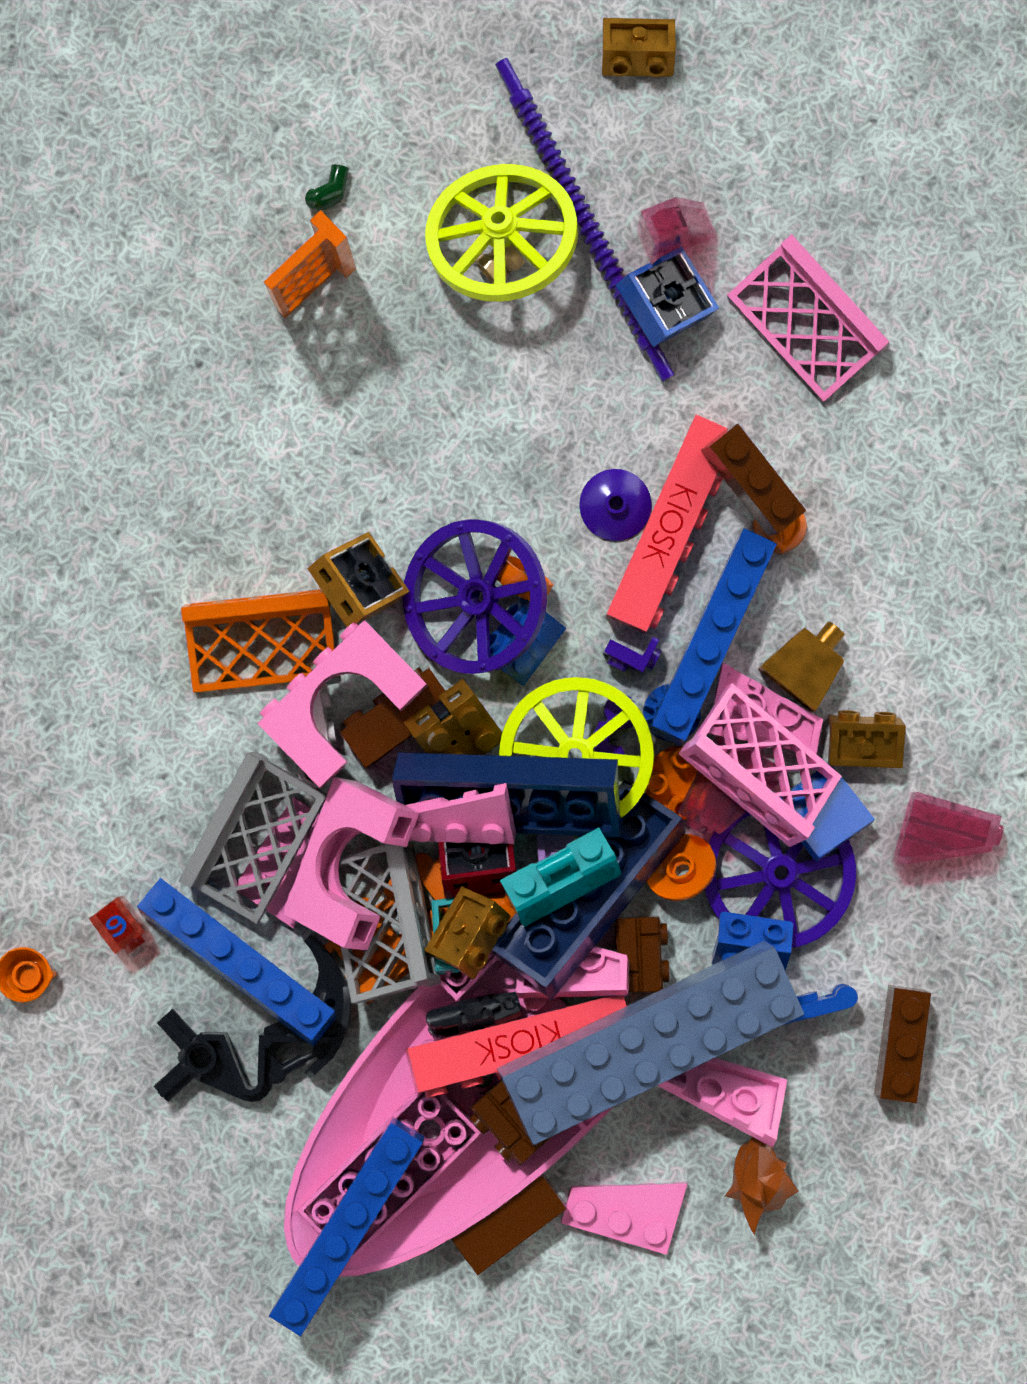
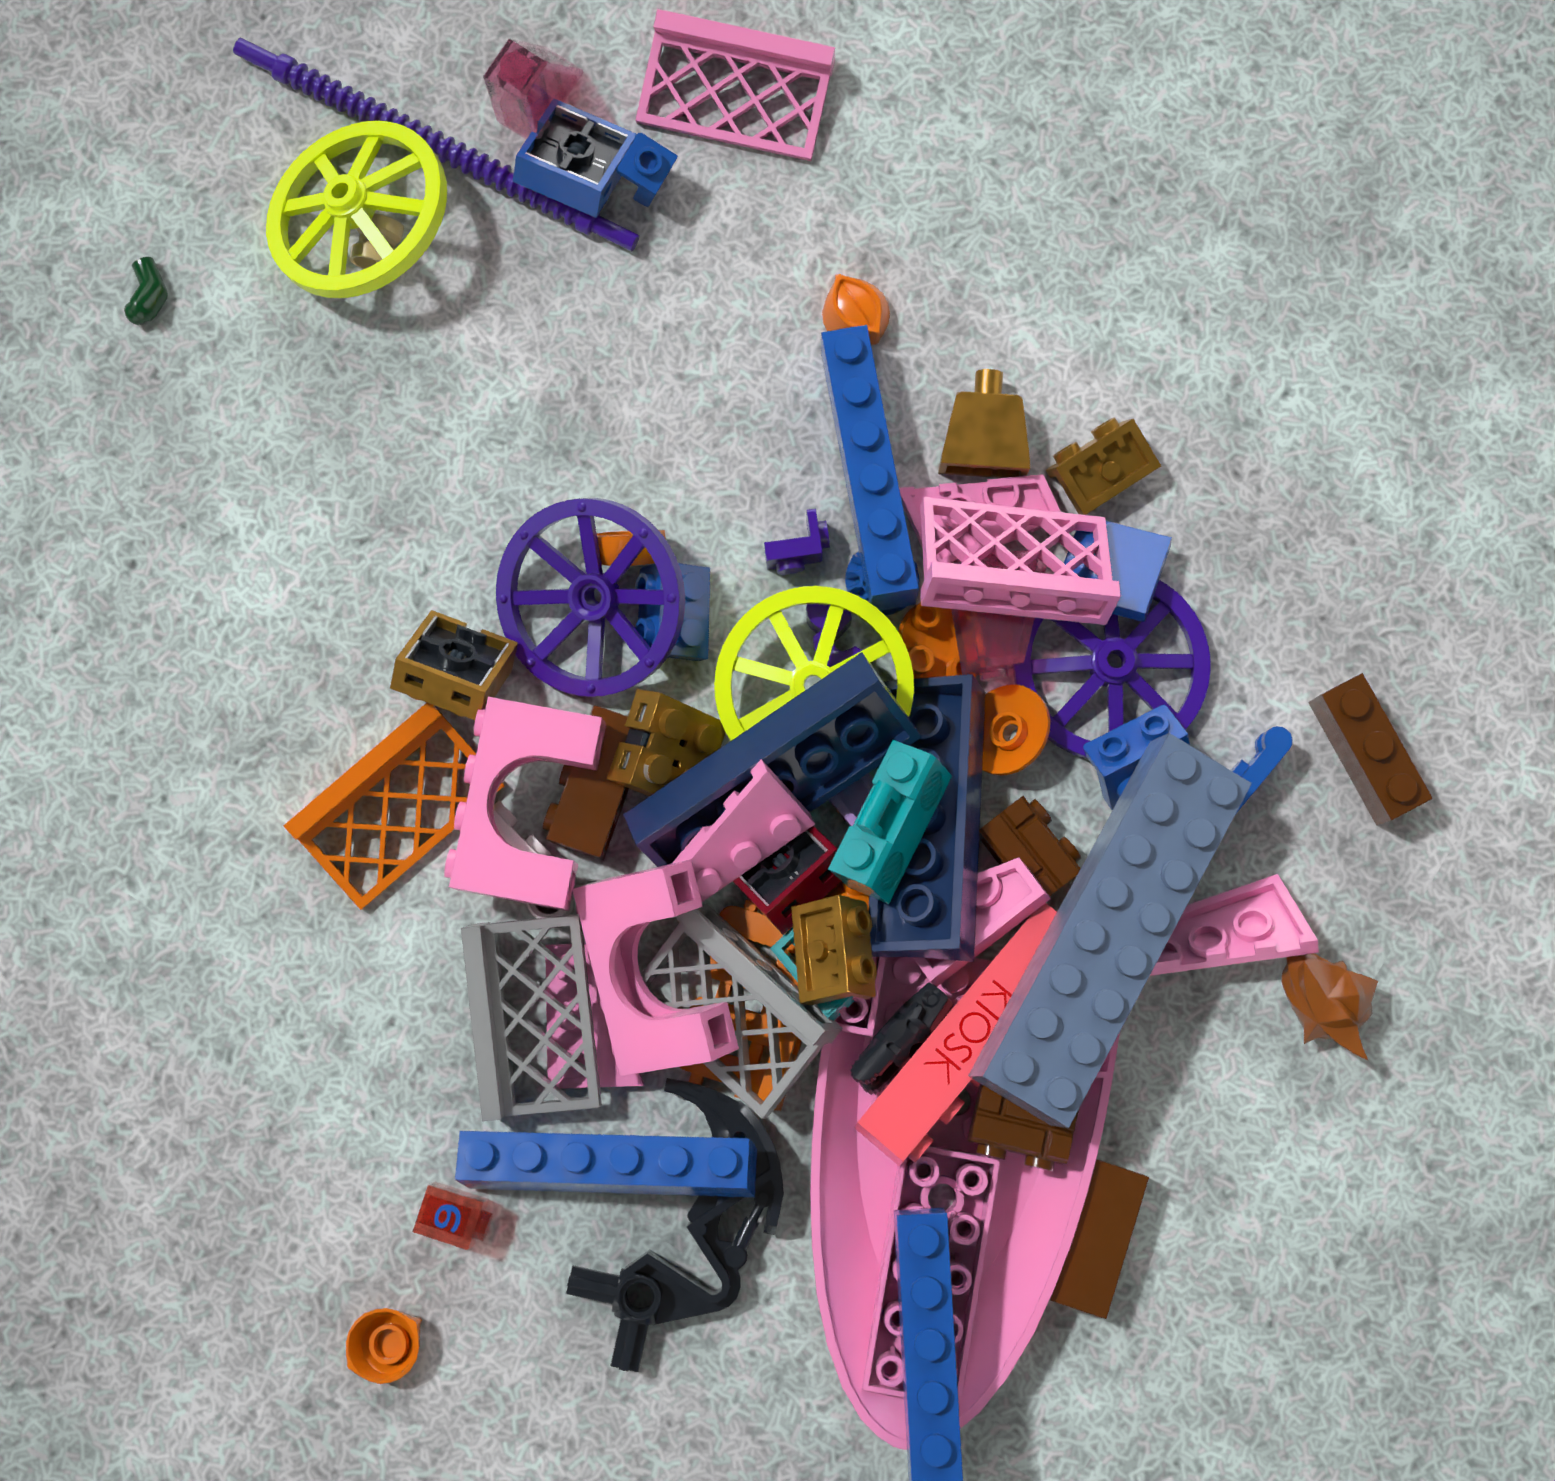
camera: 35 degrees left, 5 degrees down
(310, 265) = (172, 366): orange fence -> none
(611, 523) = (671, 430): dark purple dish -> none
(629, 1213) = (1215, 1136): bright pink wing -> none
(668, 531) = (744, 387): coral brick -> none
(709, 336) = (646, 166): none -> blue bracket
(753, 480) = (796, 275): reddish brown brick -> none
(944, 830) = (1248, 499): clear pink slope -> none

